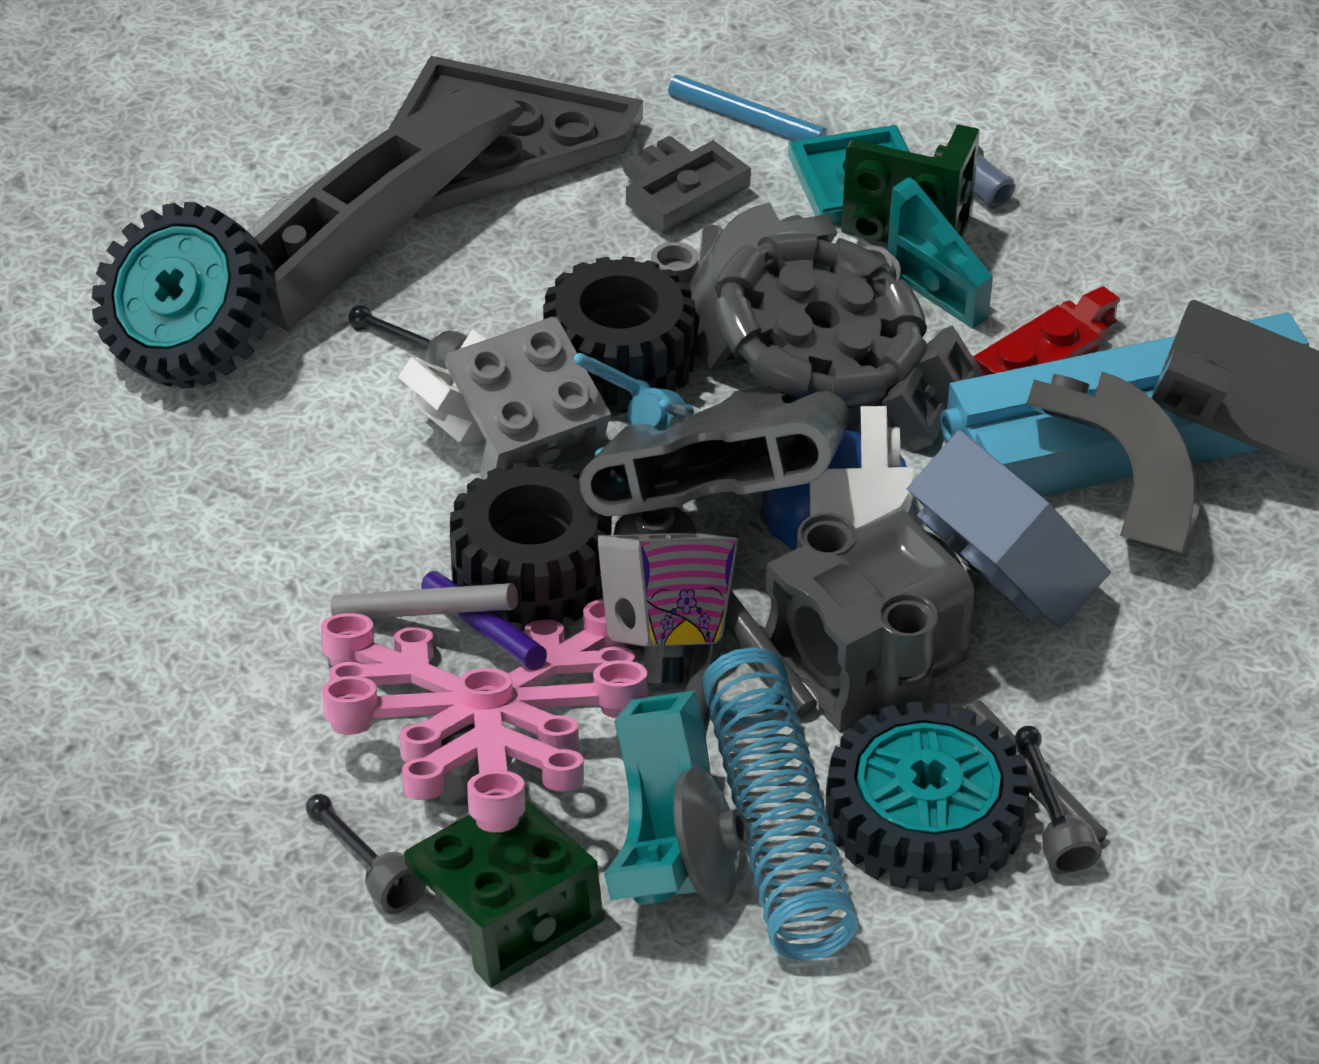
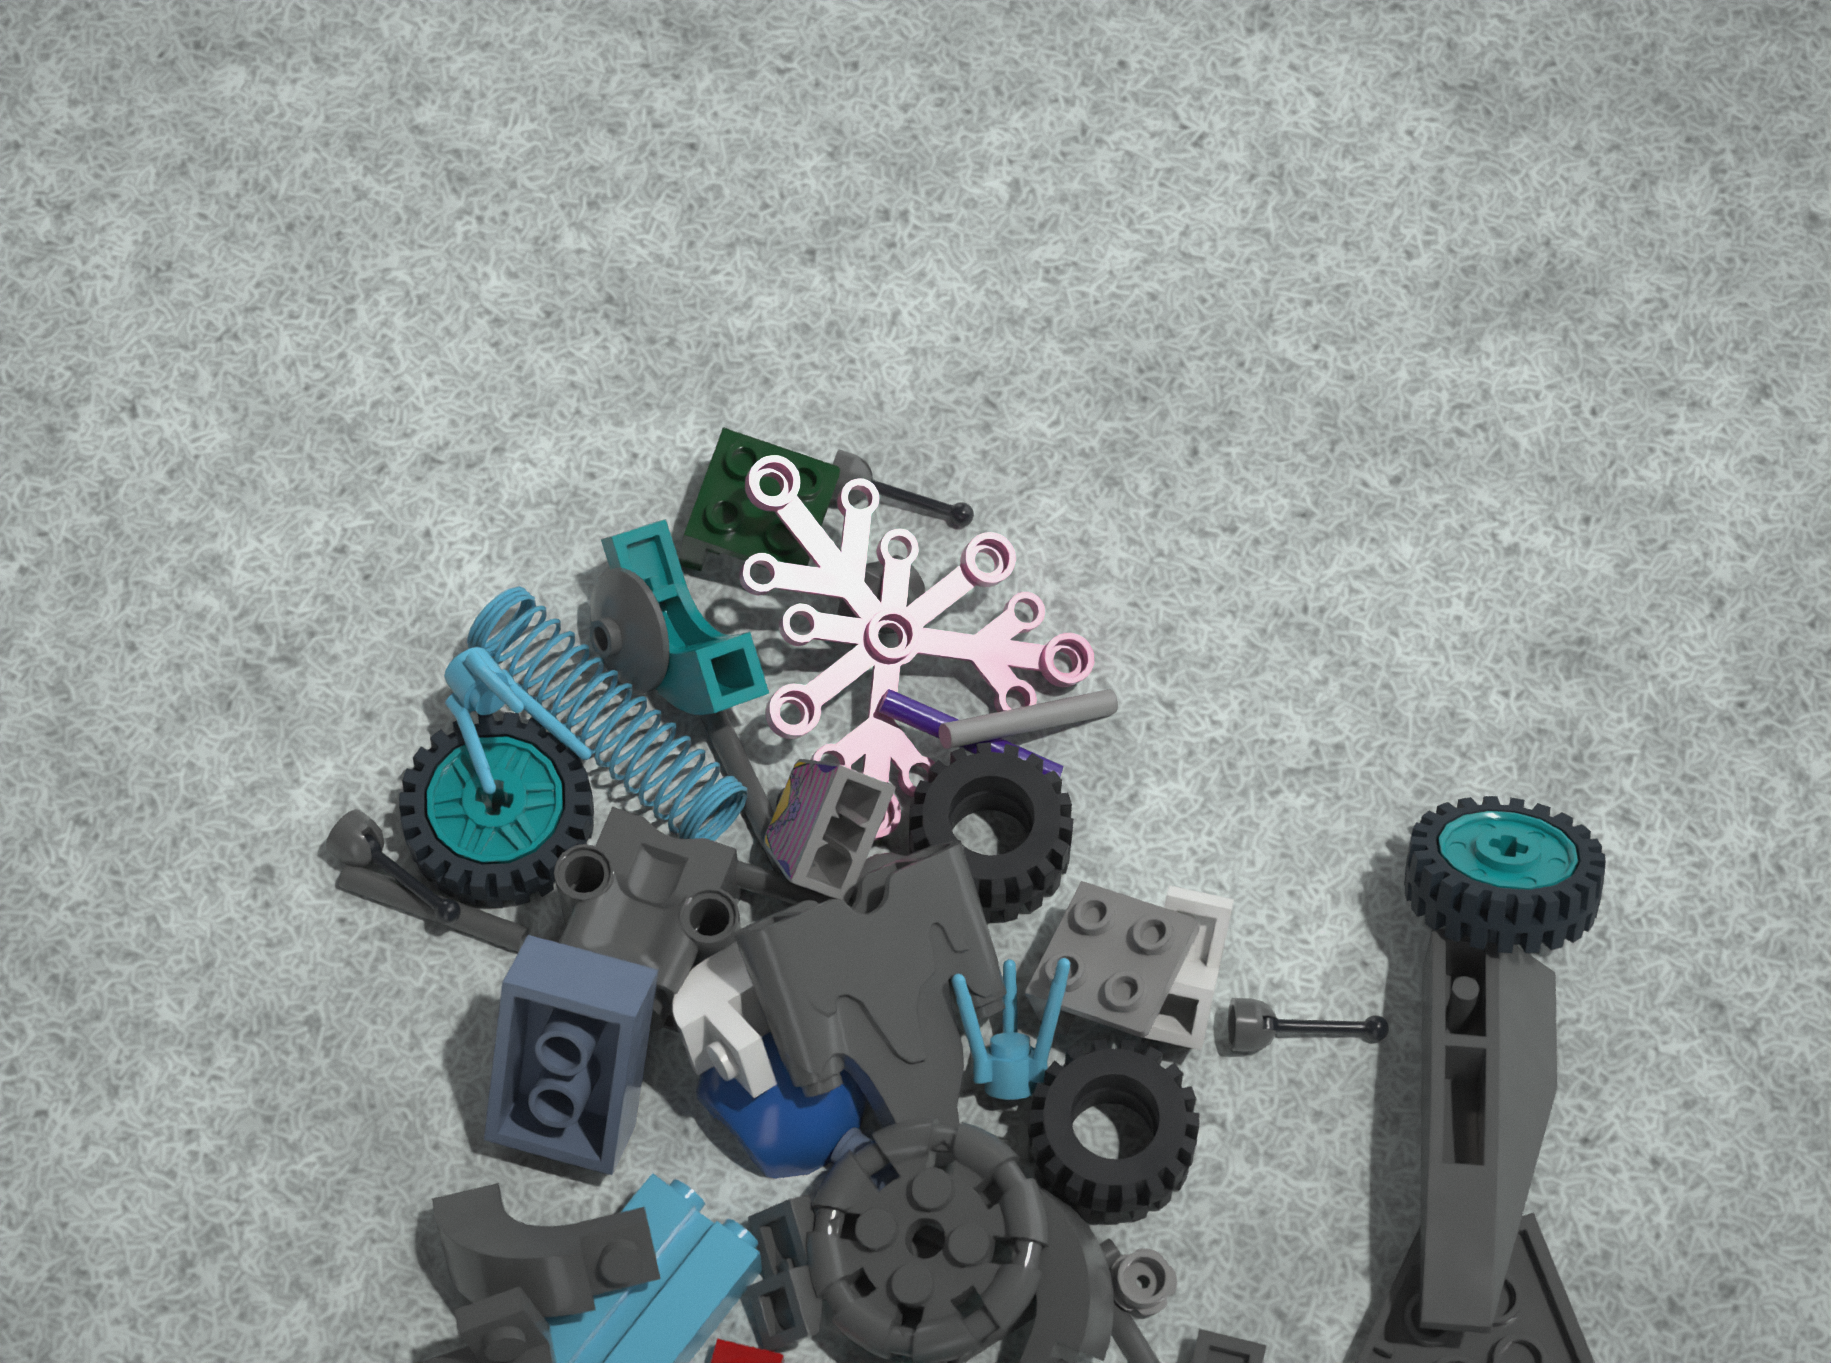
camera: 145 degrees right, 20 degrees up
(880, 845) = (485, 688): none -> medium azure plant

